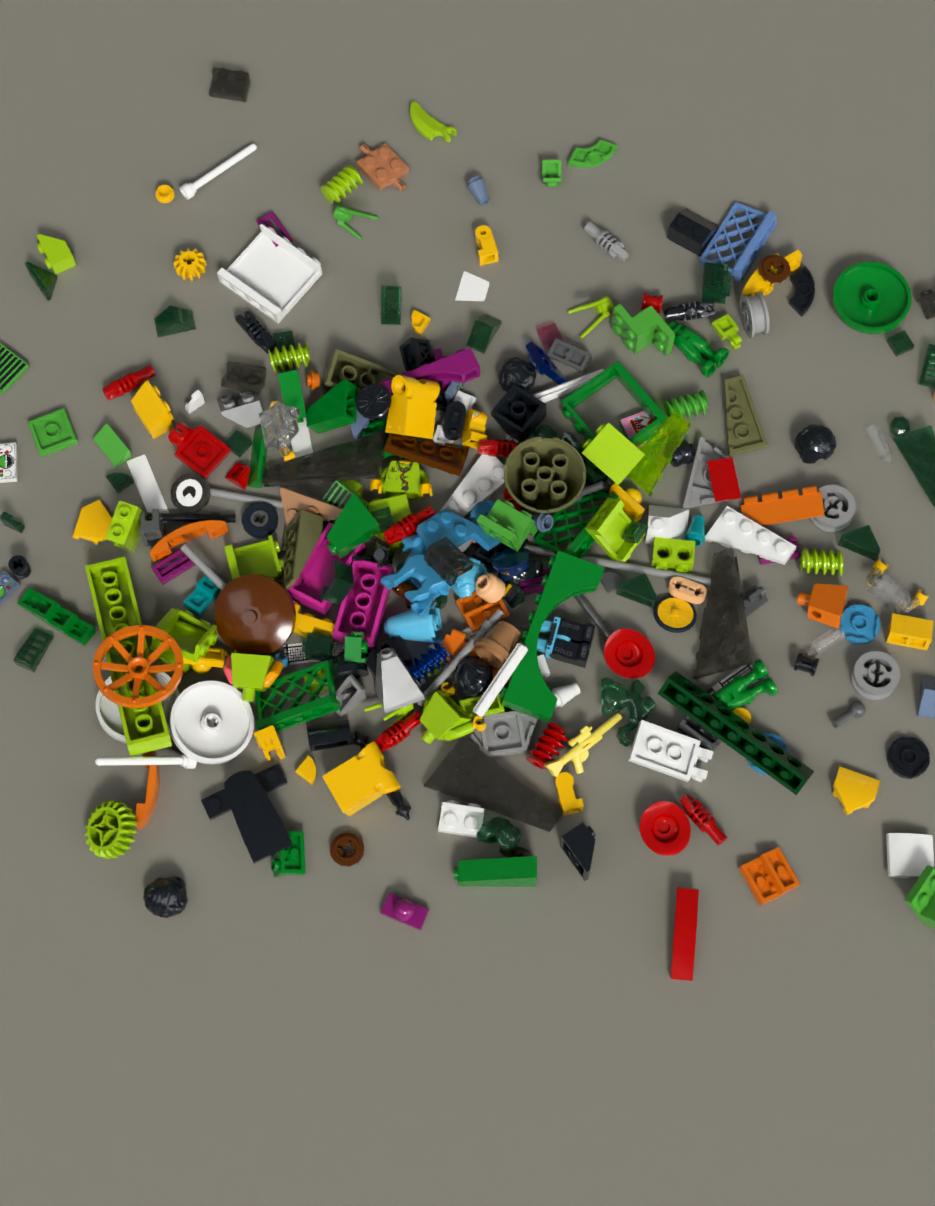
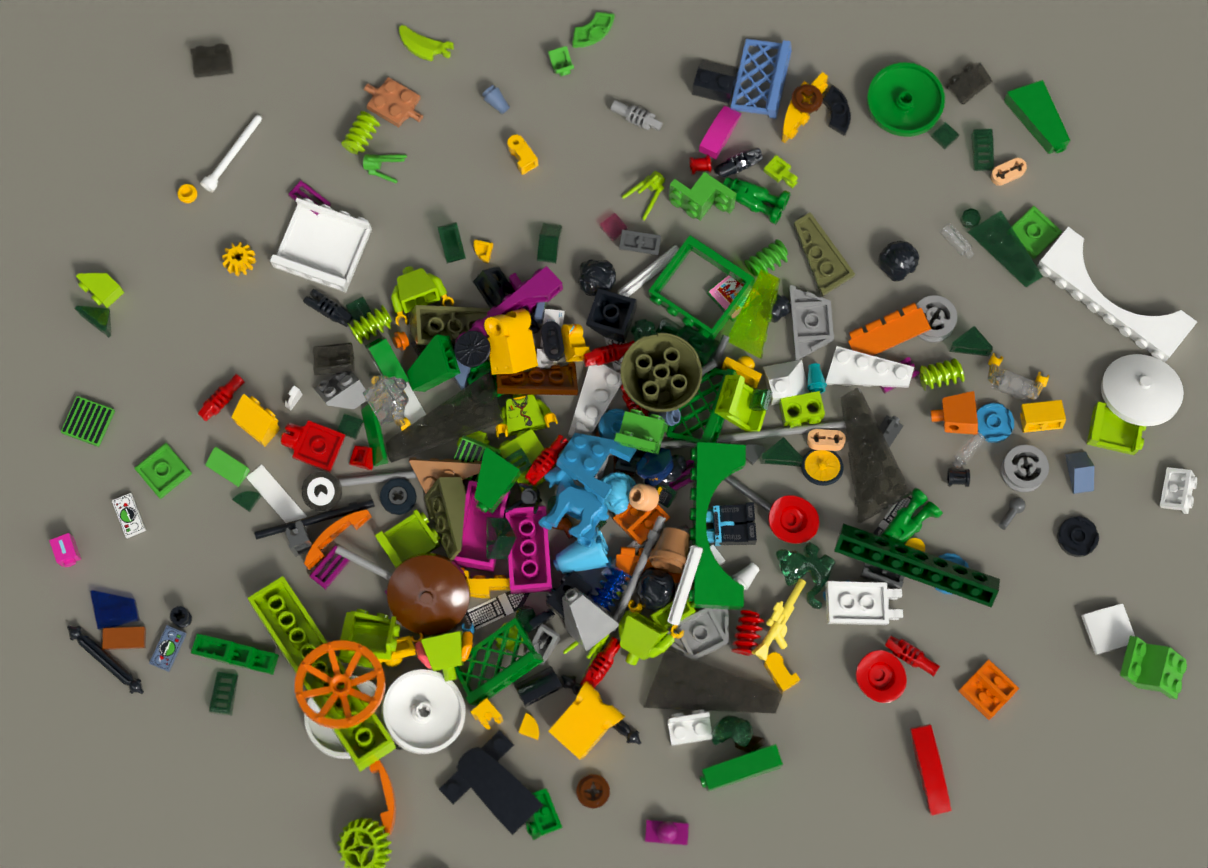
camera: 20 degrees left, 5 degrees up
(7, 521) = (151, 573): clear green tile -> none
(93, 523) = (239, 550): yellow slope -> none
(125, 526) = (273, 546): lime panel -> none
(174, 321) = (243, 322): clear green slope -> none
(181, 760) = (406, 757): white piece -> none
(202, 596) = (368, 589): teal slope -> none
(318, 647) = (498, 605): clear green brick -> none
(345, 336) = (416, 288): none -> lime torso
(356, 647) = (538, 597): green brick -> none
(447, 560) = (599, 487): clear smoke bracket -> none
(472, 288) = (522, 200): white sticker -> none
(543, 363) = (619, 259): clear blue wing -> none
(579, 848) = (812, 722): black slope -> none
(612, 453) = (715, 329): lime panel -> none
(679, 278) = (719, 132): none -> dark pink slope
(715, 283) = (755, 128): clear green brick -> none
(723, 479) = (826, 322): red piece -> none
(754, 314) = (802, 149): light grey wheel -> none
(854, 789) = (1039, 583): yellow slope -> none

